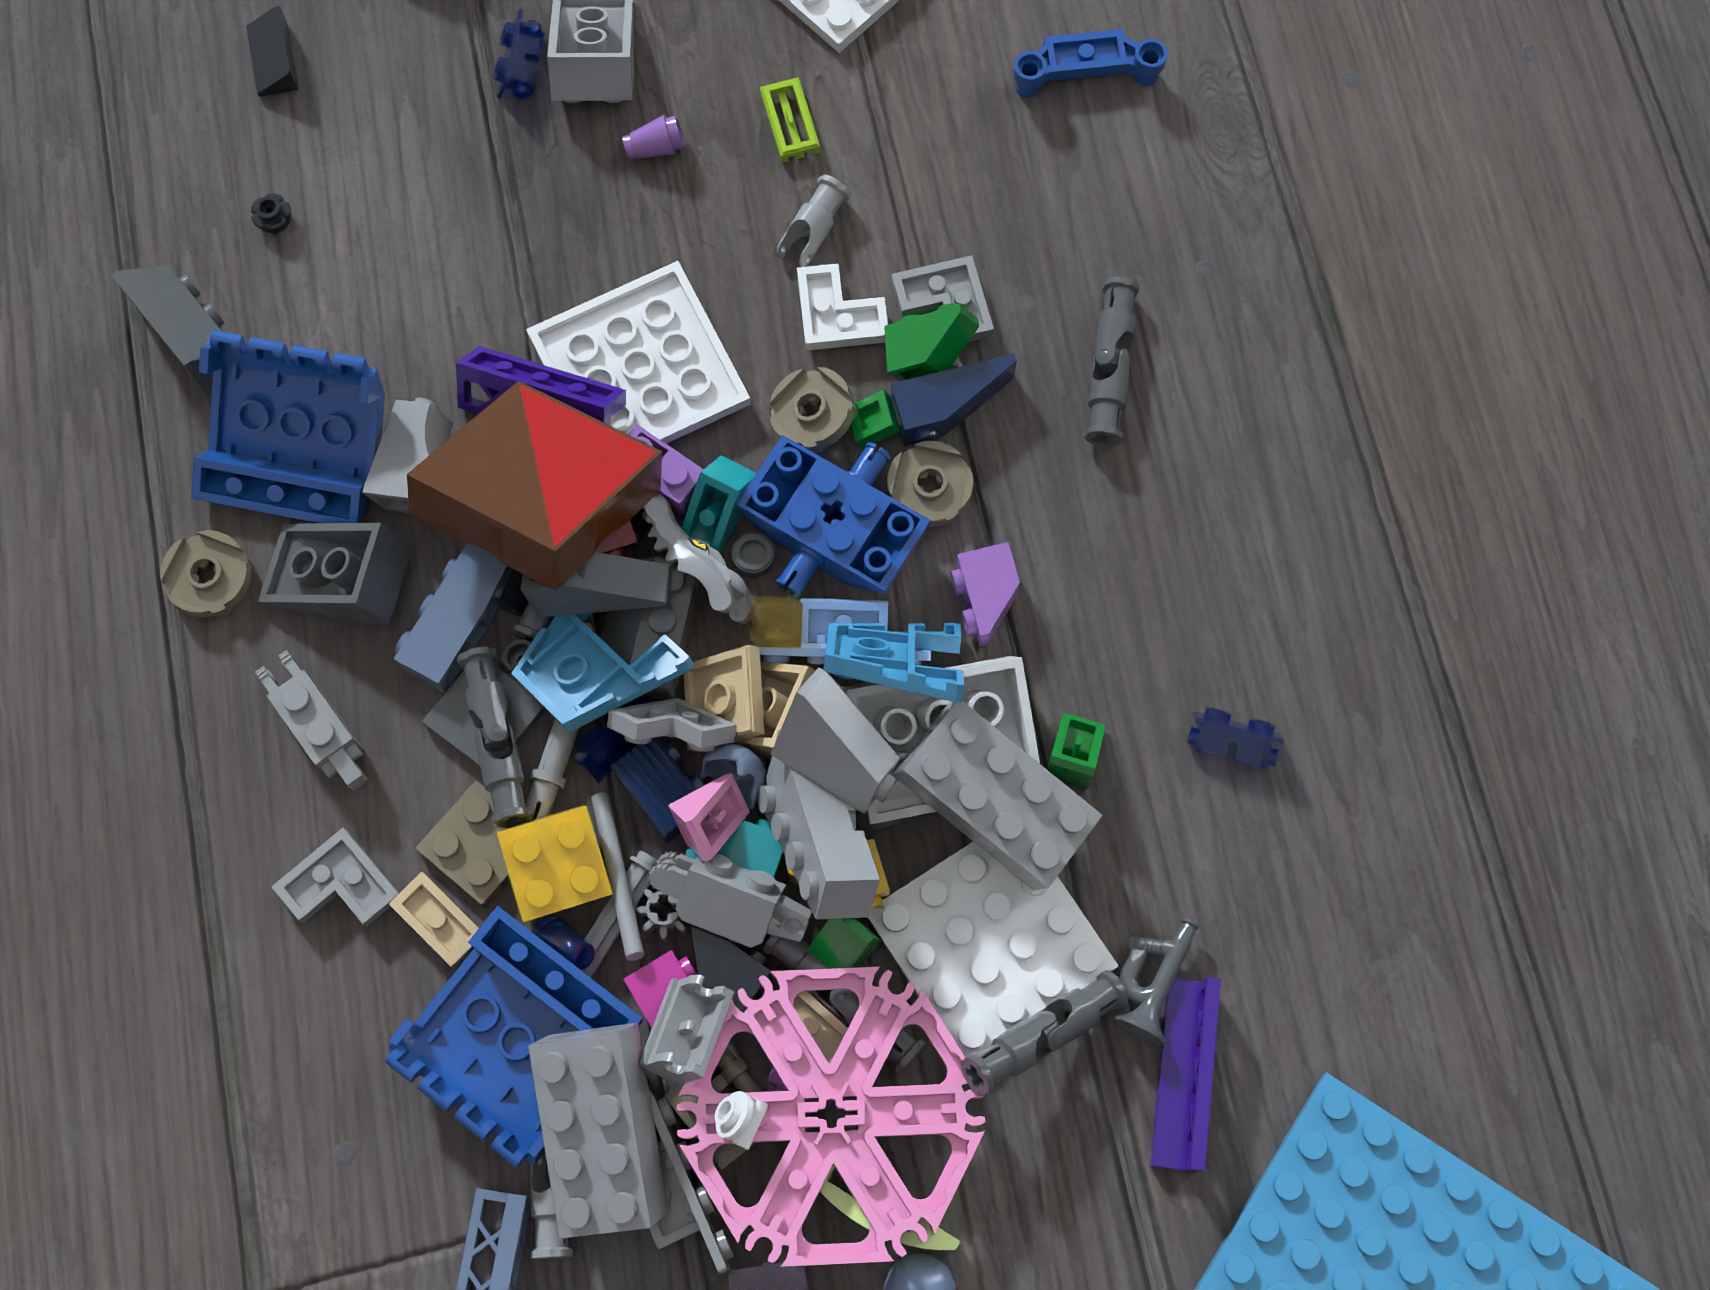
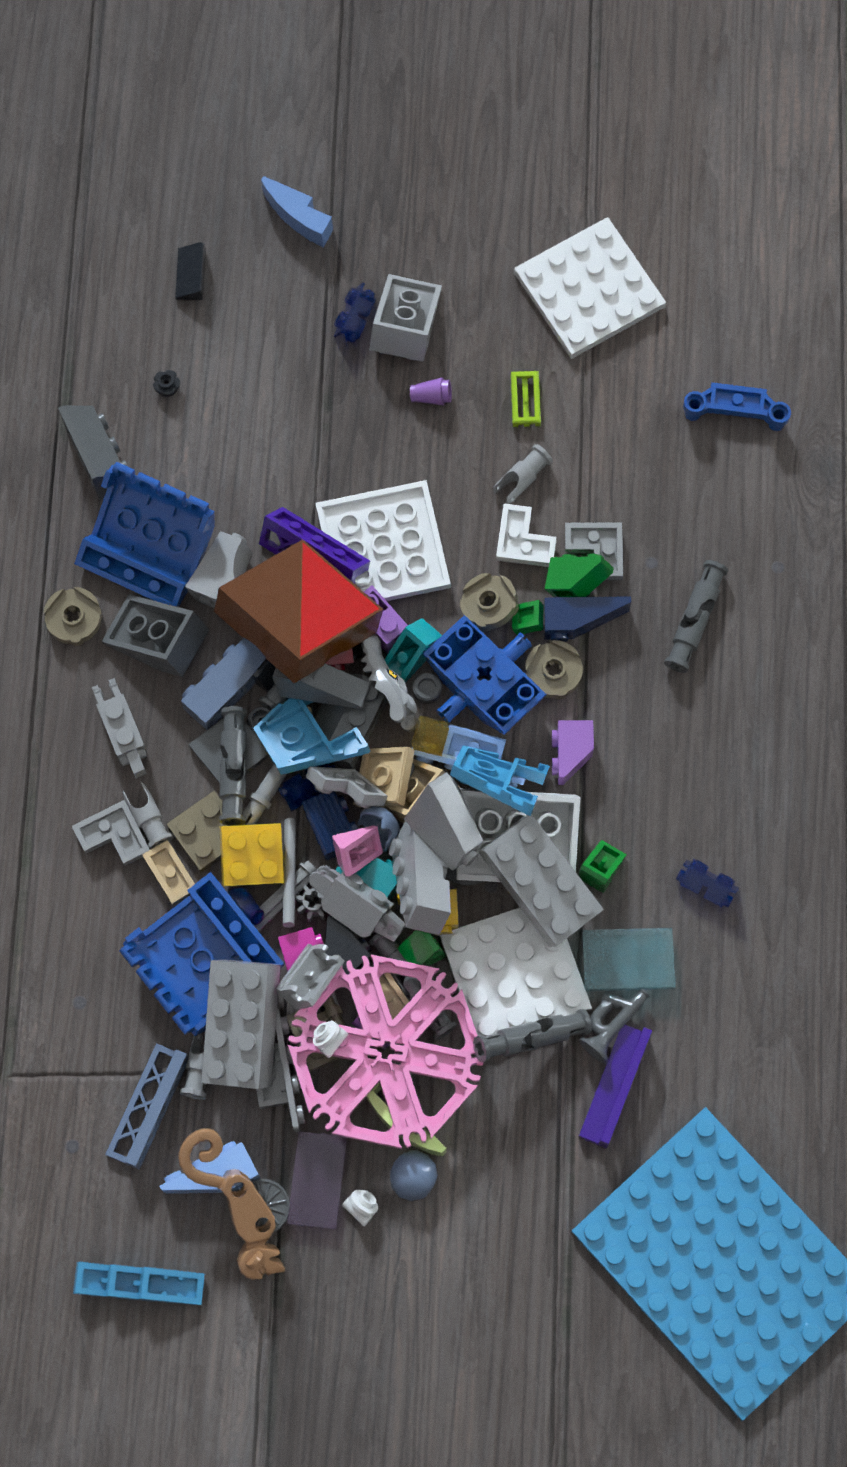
camera: 15 degrees right, 0 degrees up
(388, 848) = (149, 820): none -> light grey piece
(1152, 879) = (628, 959): none -> clear light blue plate

